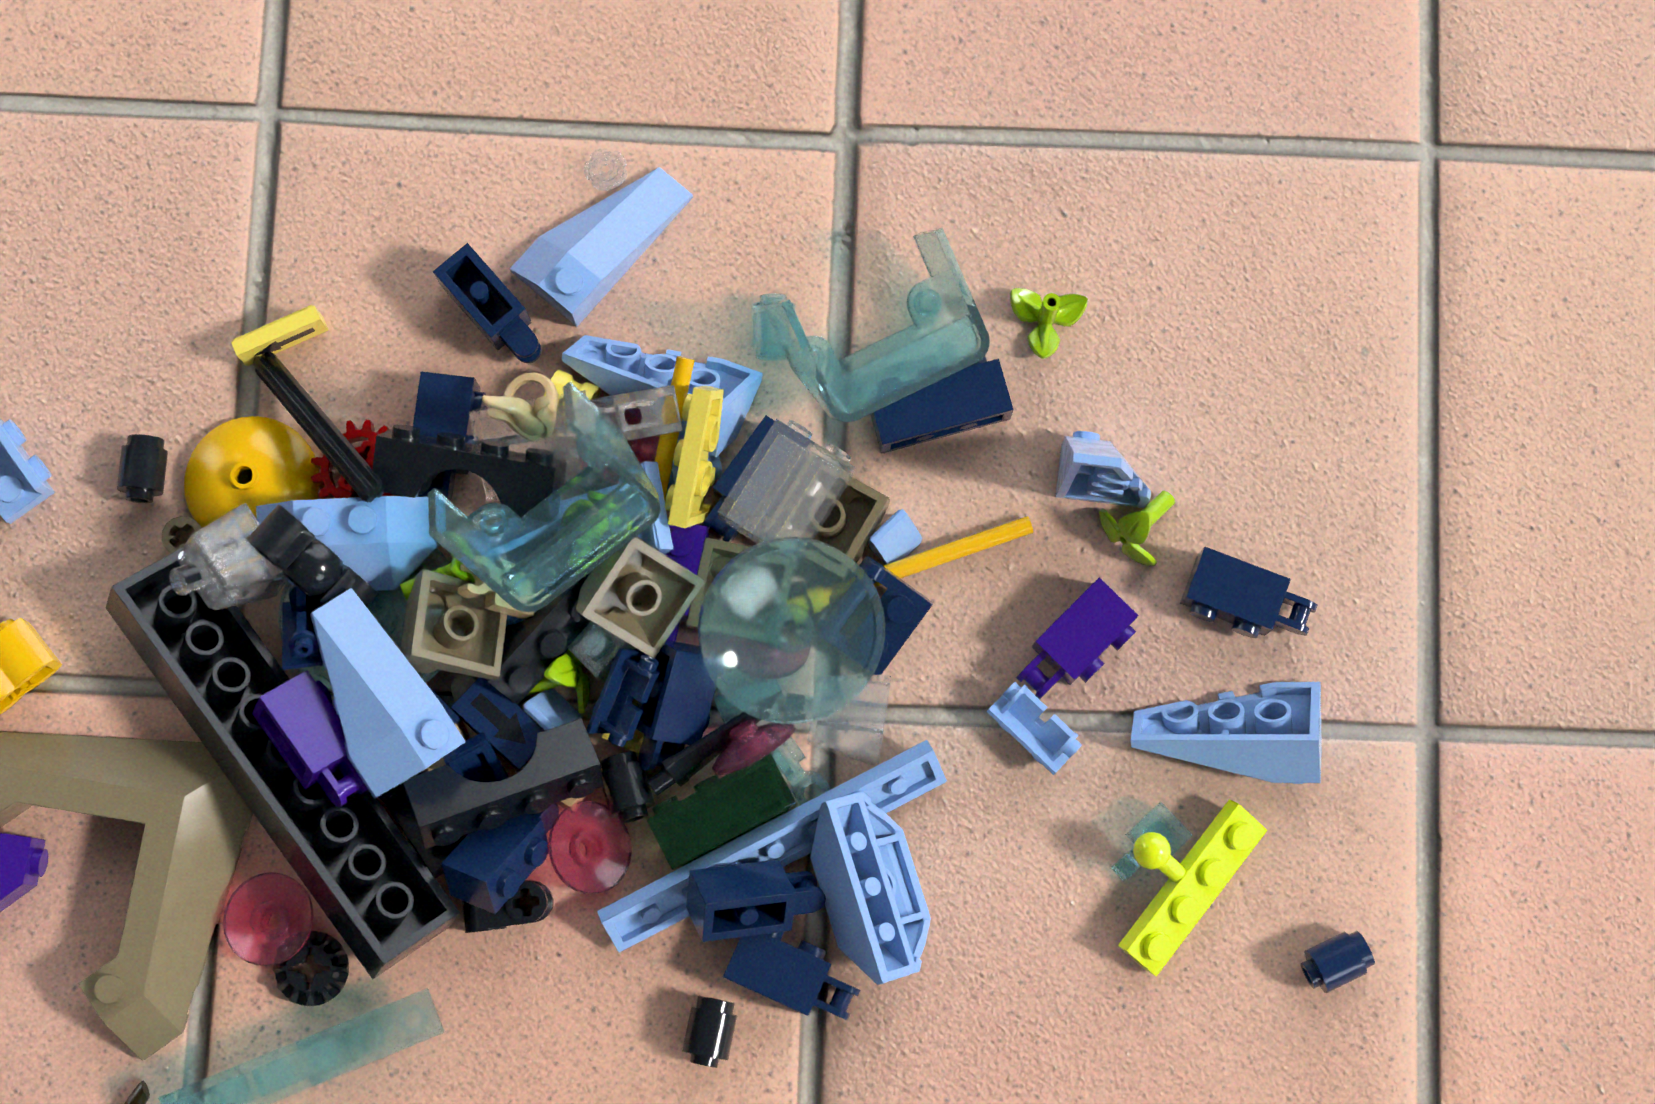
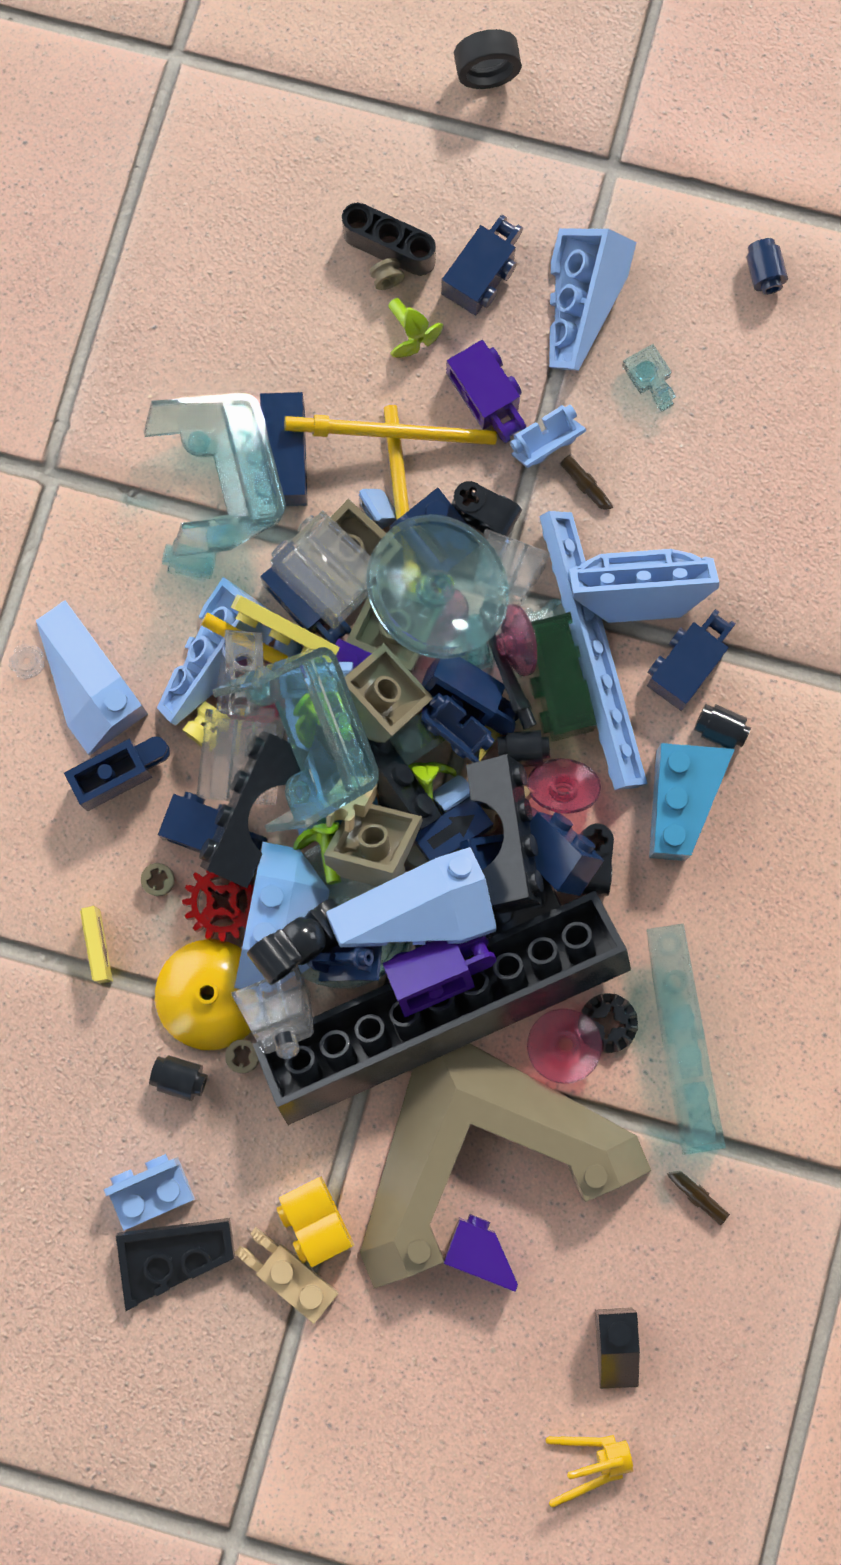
camera: 75 degrees left, 0 degrees up
(318, 427) = (183, 922): black axle -> none
(379, 374) = (147, 875): none -> dark tan bush
(519, 415) = (220, 749): tan piece -> none
(607, 1000) = (683, 795): none -> dark azure wedge
(749, 899) = (632, 671): dark blue brick -> none
(917, 679) = (488, 509): none -> black piece
(974, 444) = (322, 426): none -> yellow bar
(991, 791) = (586, 483): none -> dark brown piece
(1053, 309) = (231, 344): lime plant -> none
(1098, 473) = (365, 342): light blue wedge -> none
(1190, 885) = (688, 354): neon yellow plate -> none
(1201, 478) = (387, 274): none -> dark tan bush
(1258, 451) = (381, 225): none -> black beam
(1520, 537) = (487, 59): none -> black tyre

